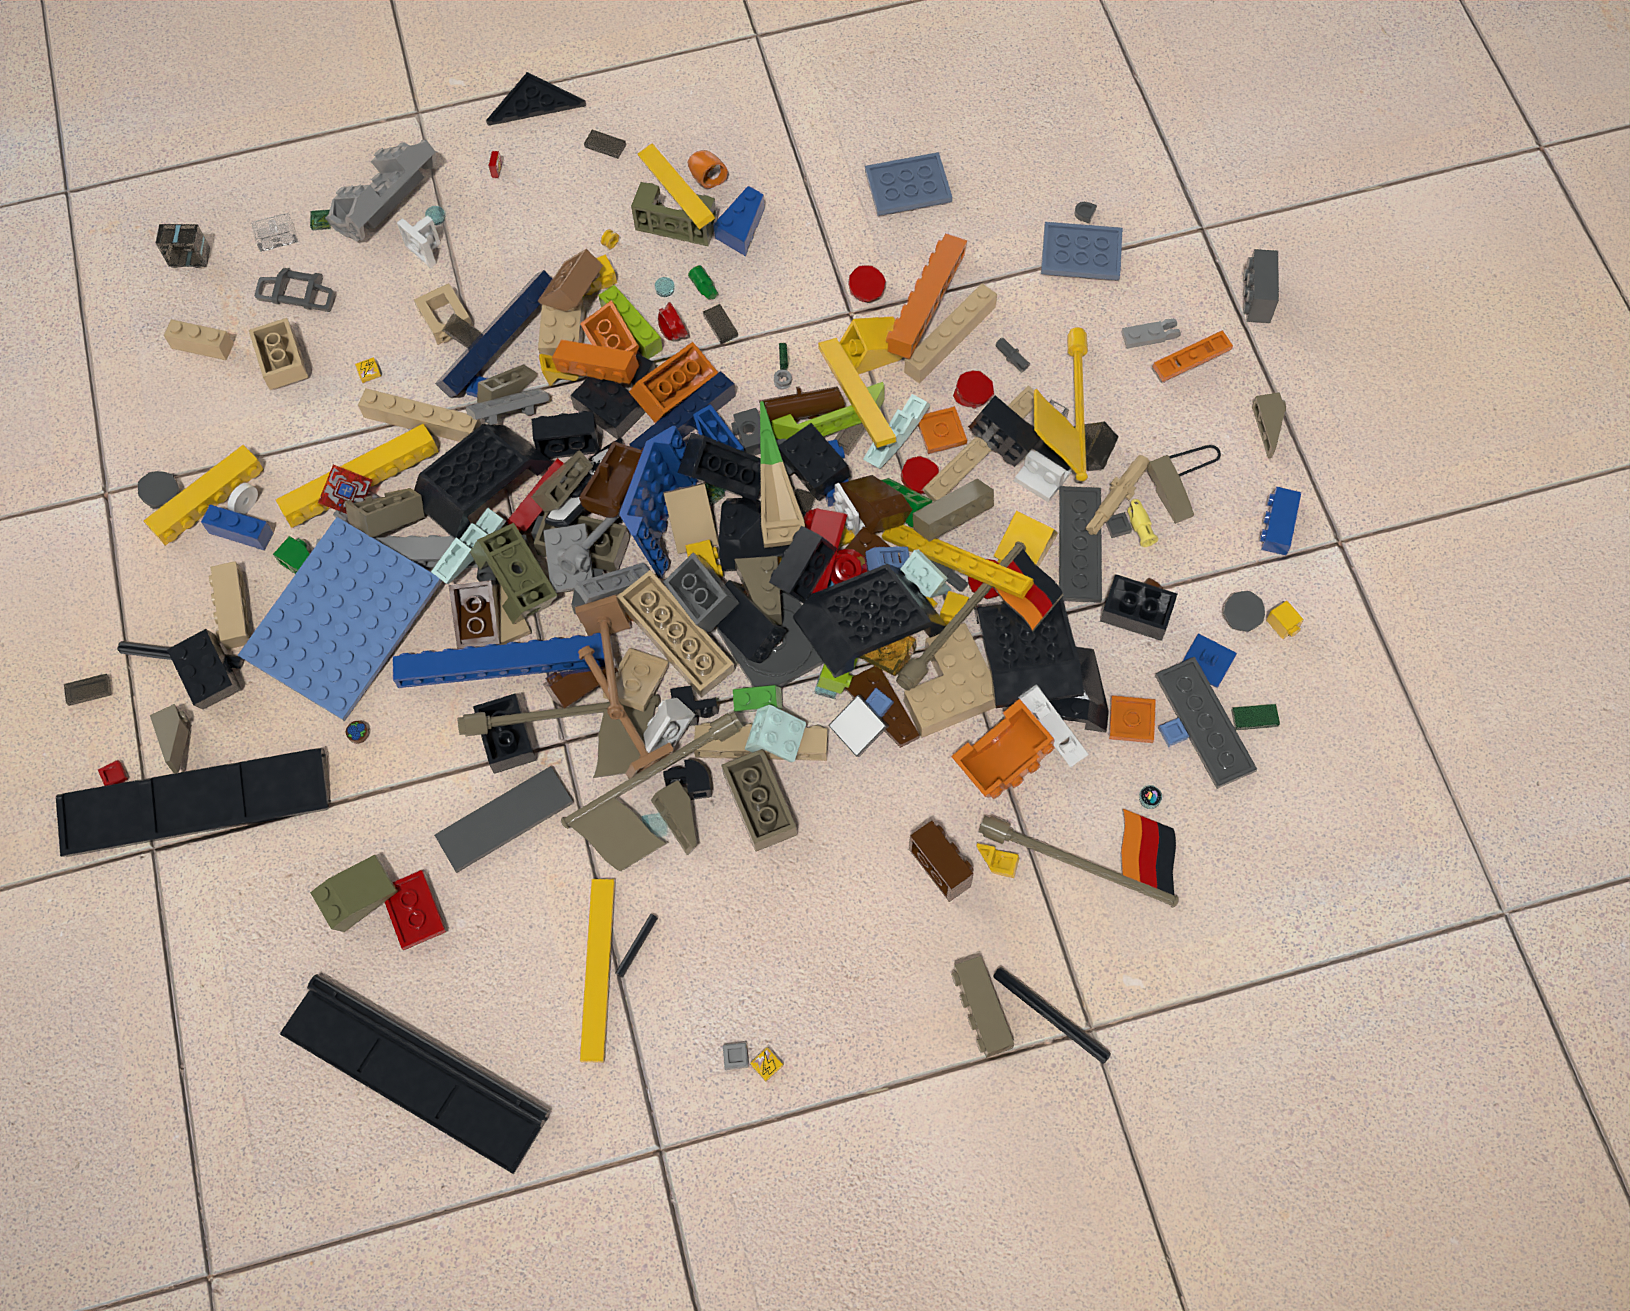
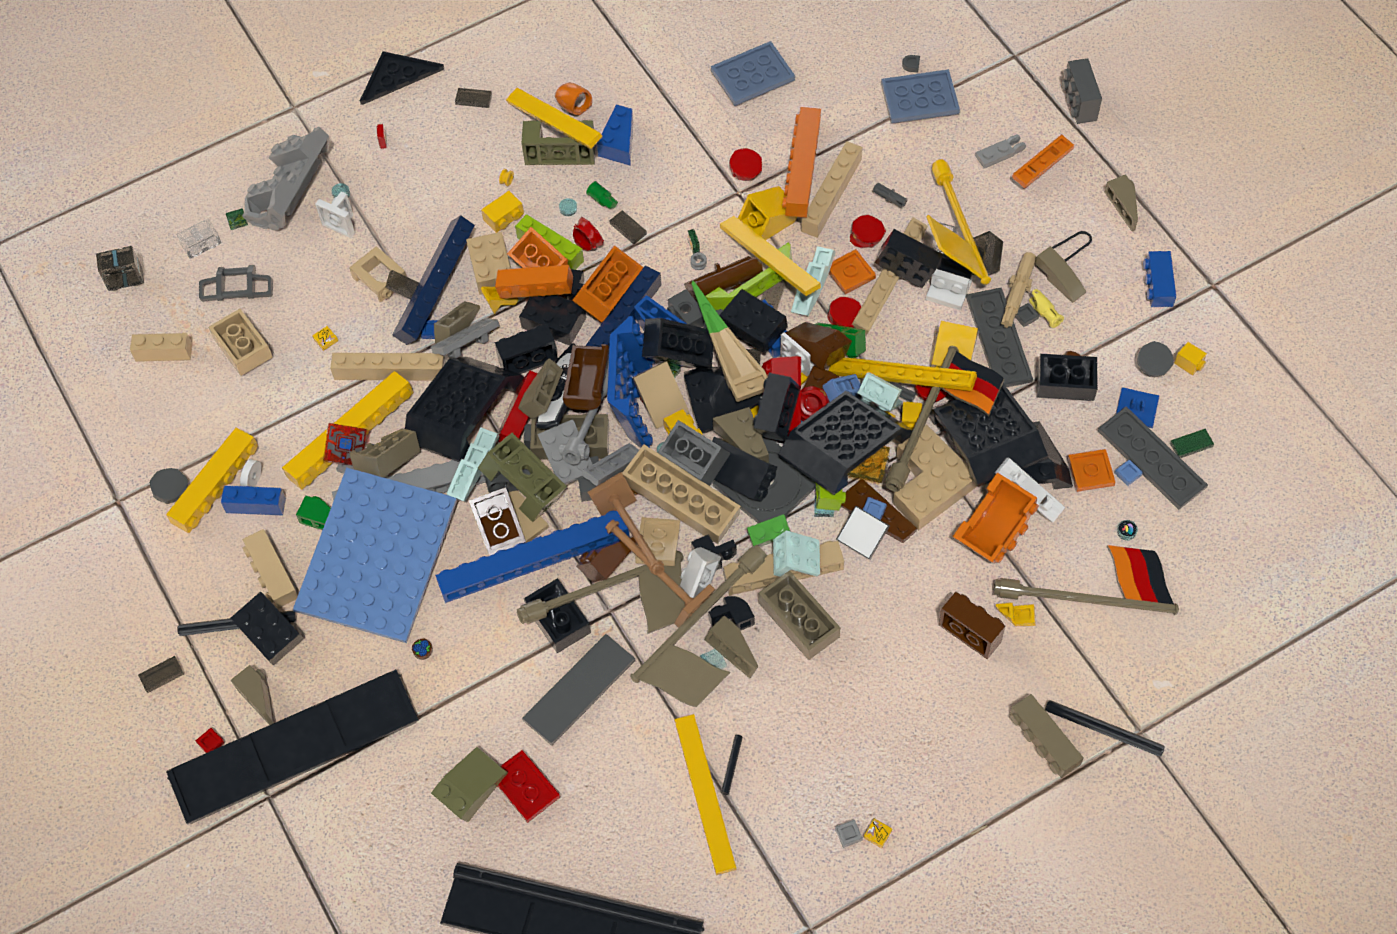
camera: 15 degrees left, 5 degrees down
(571, 282) = (489, 219): medium nougat slope -> none
(953, 509) = (885, 334): dark tan brick -> none

